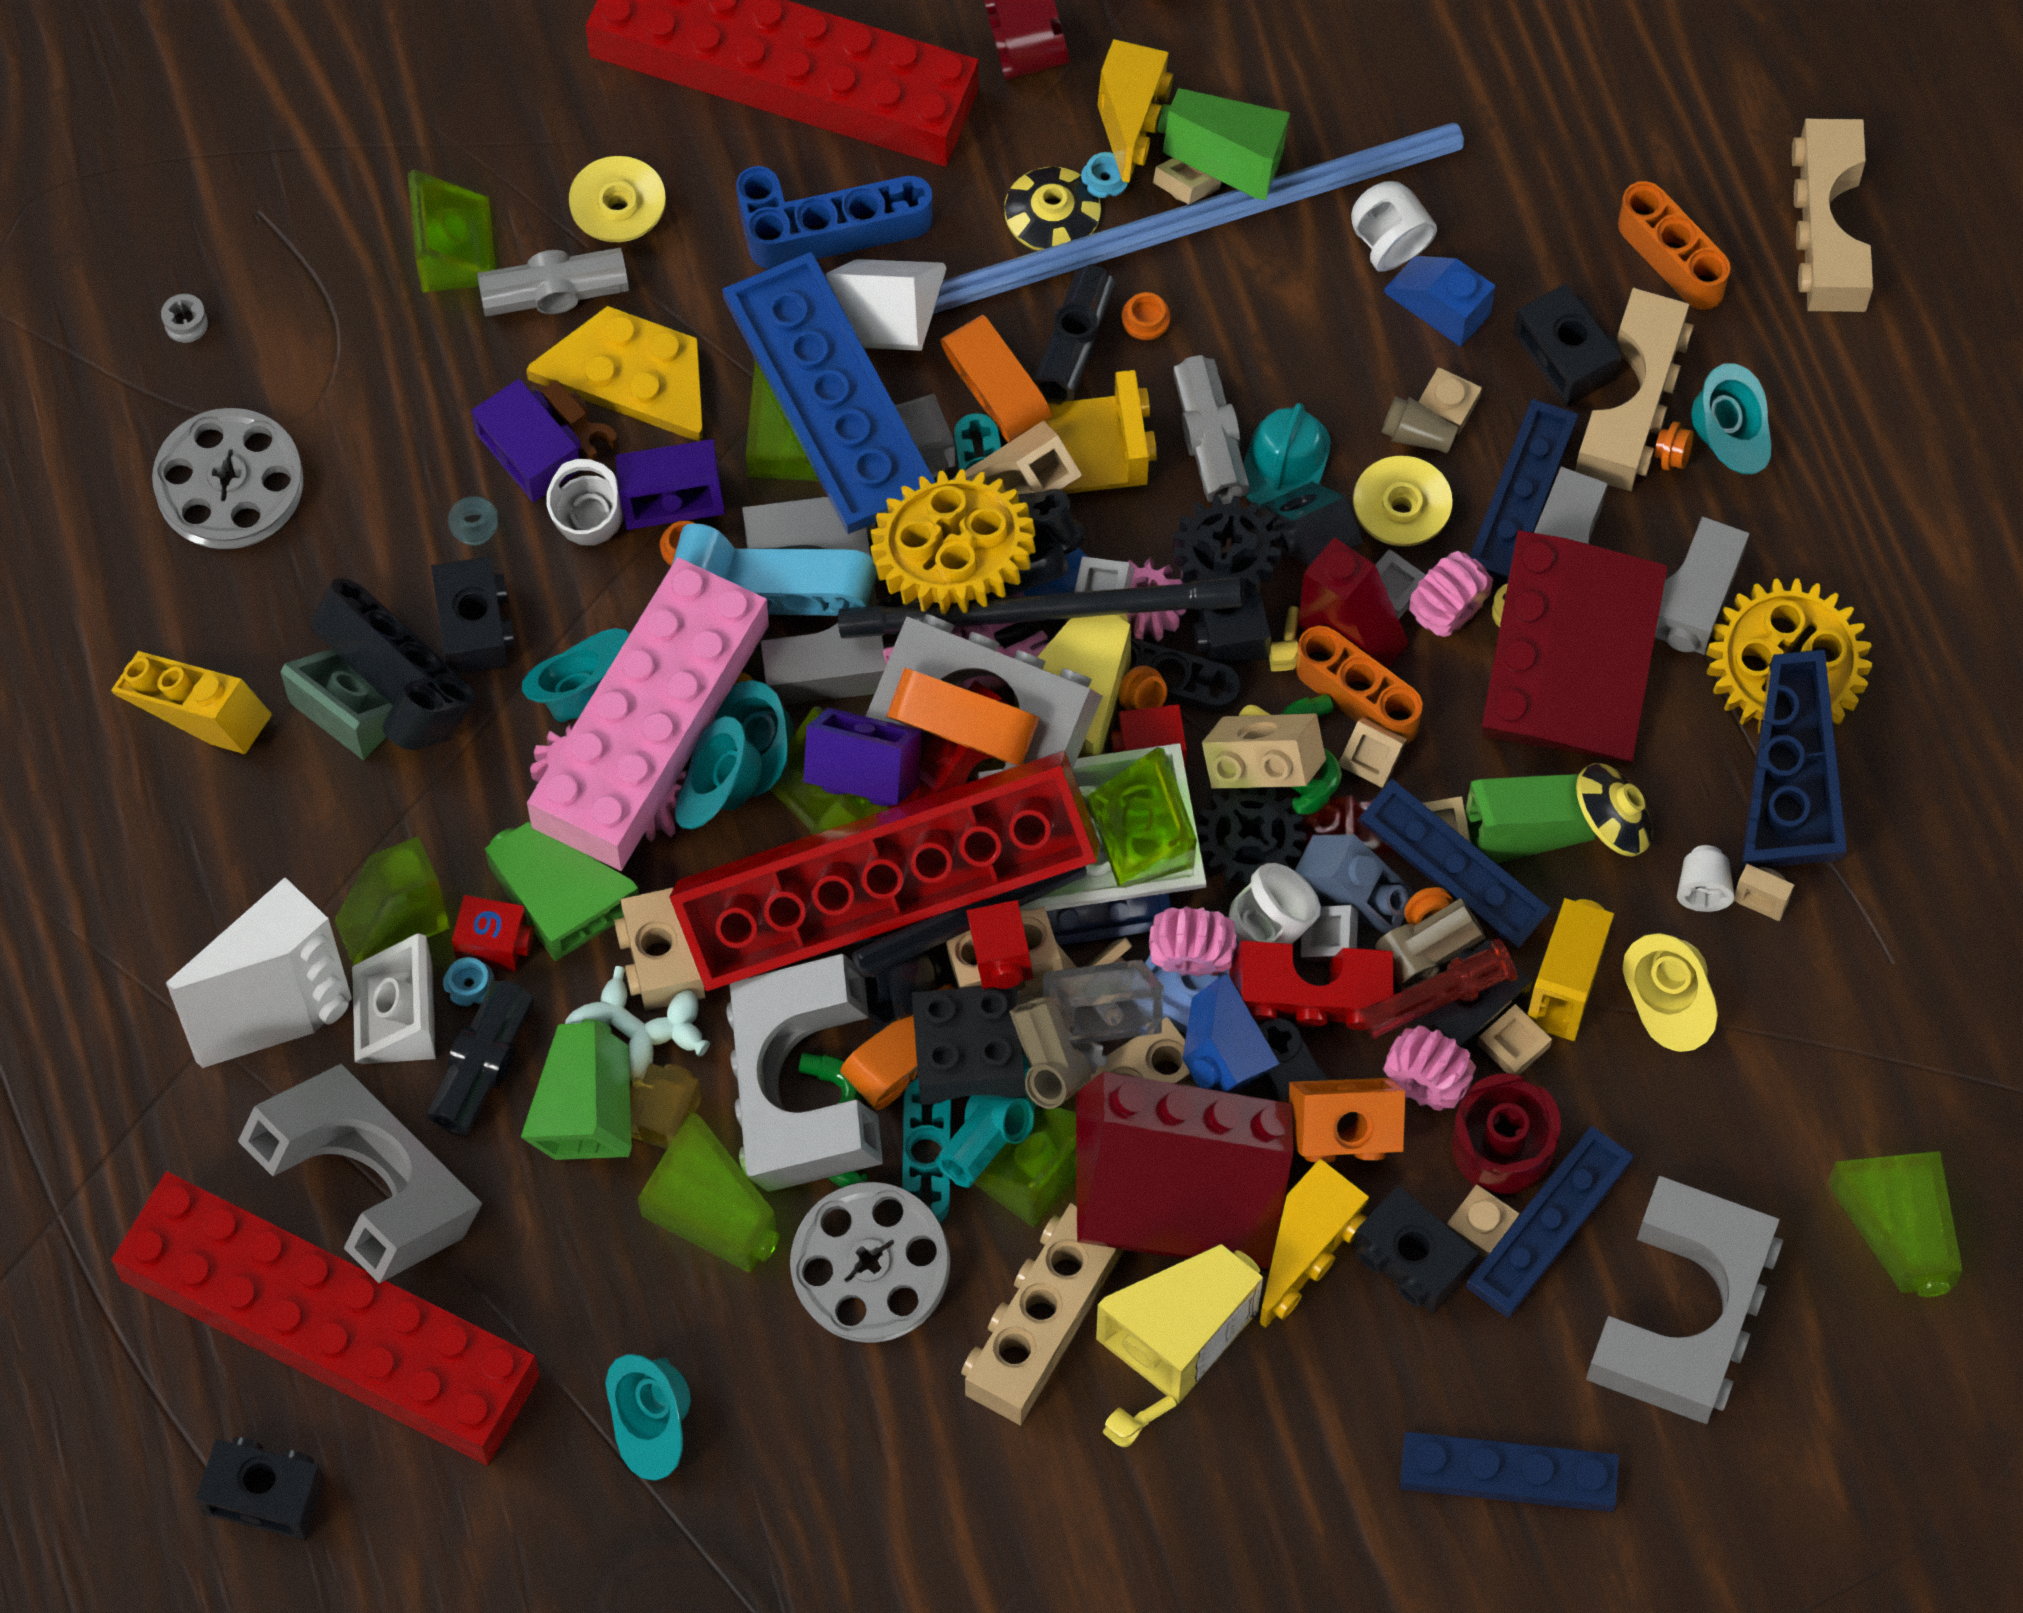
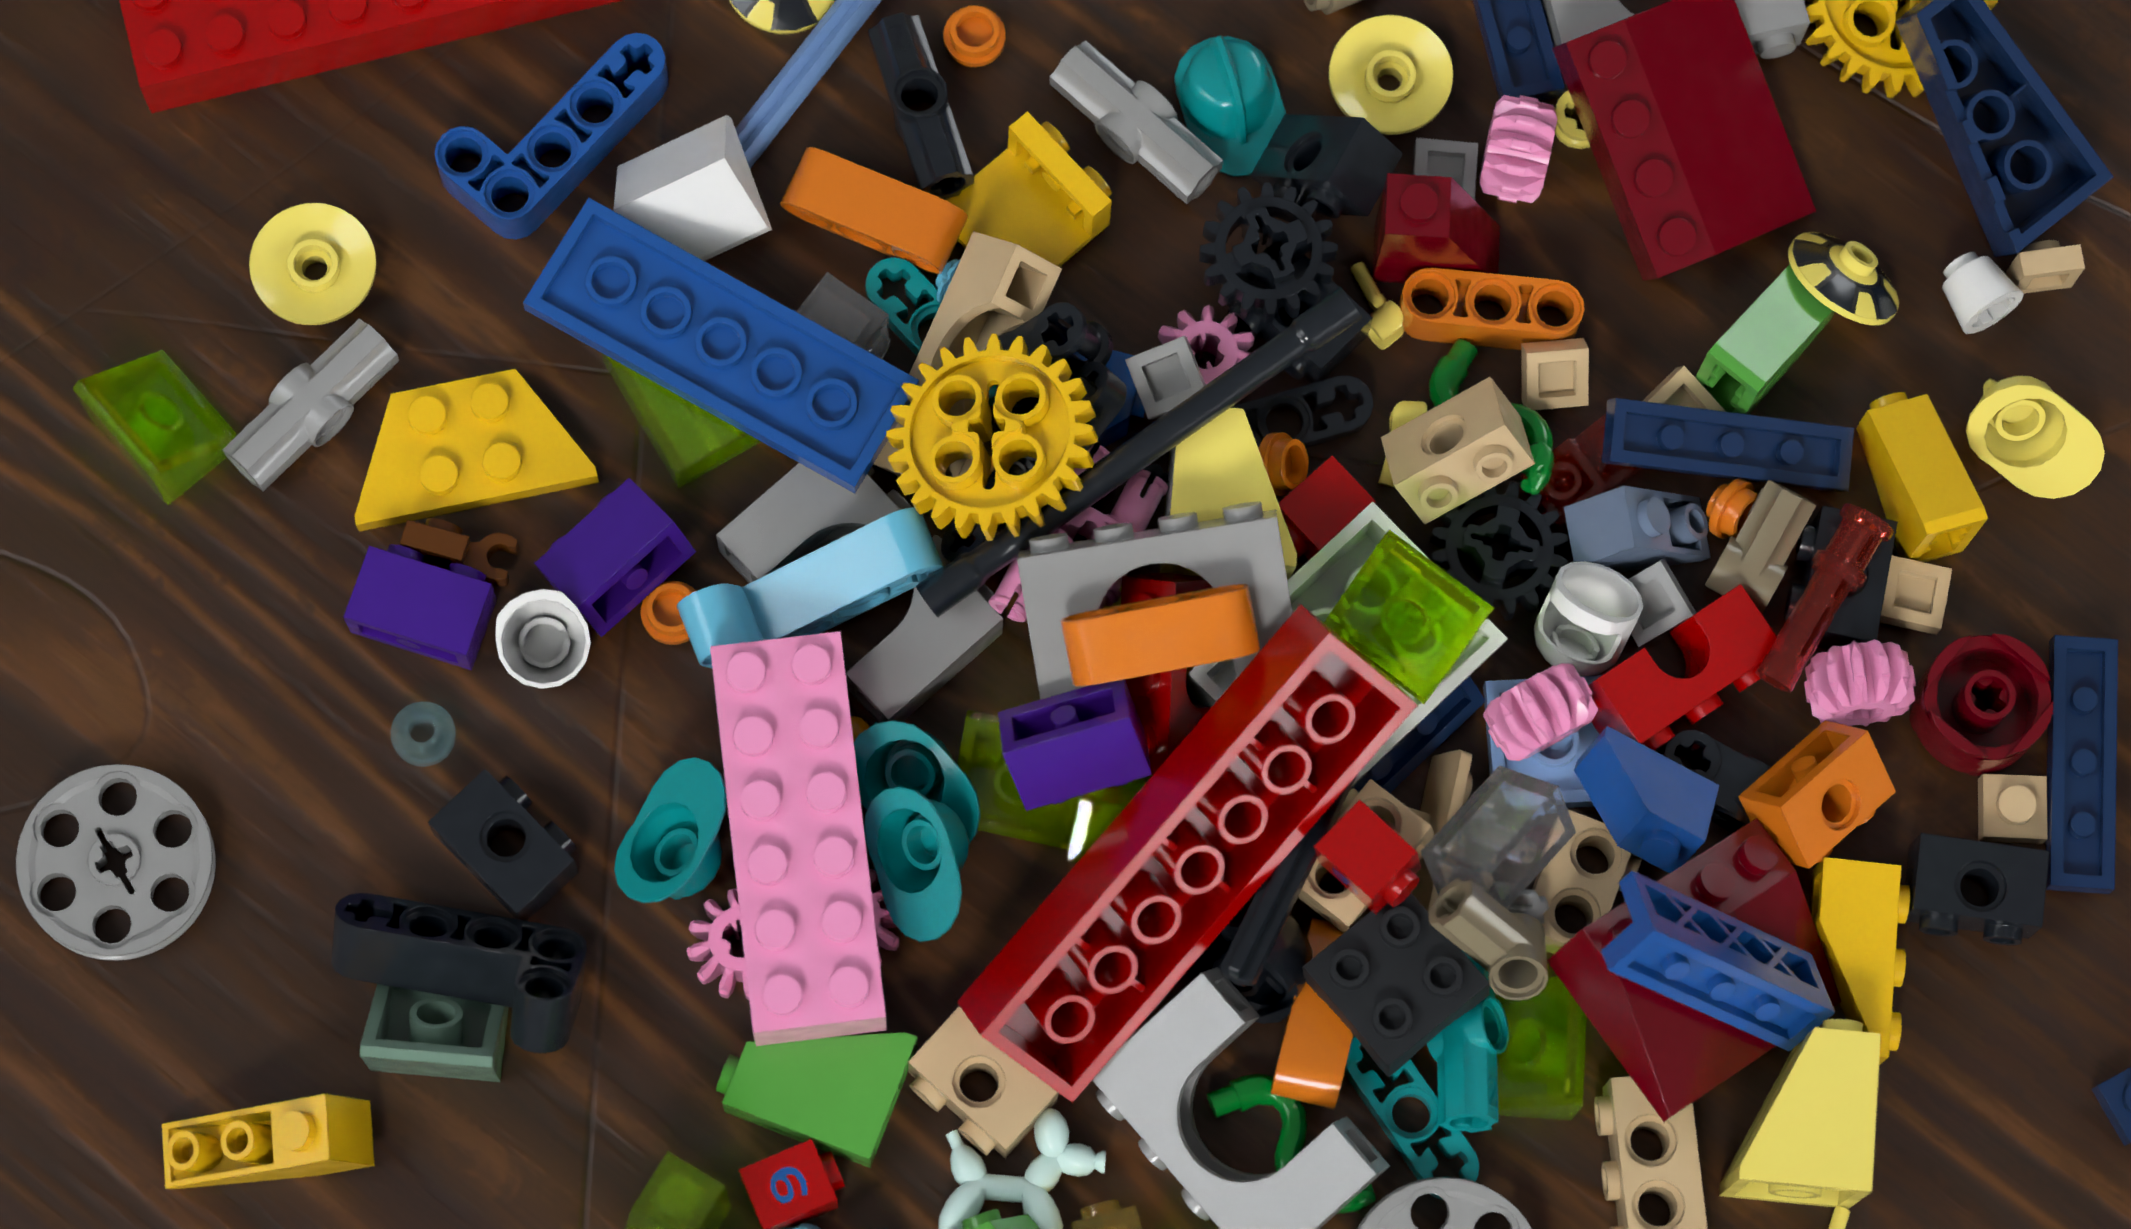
camera: 40 degrees left, 10 degrees up
(1177, 1162) = (1717, 964): none -> blue fence

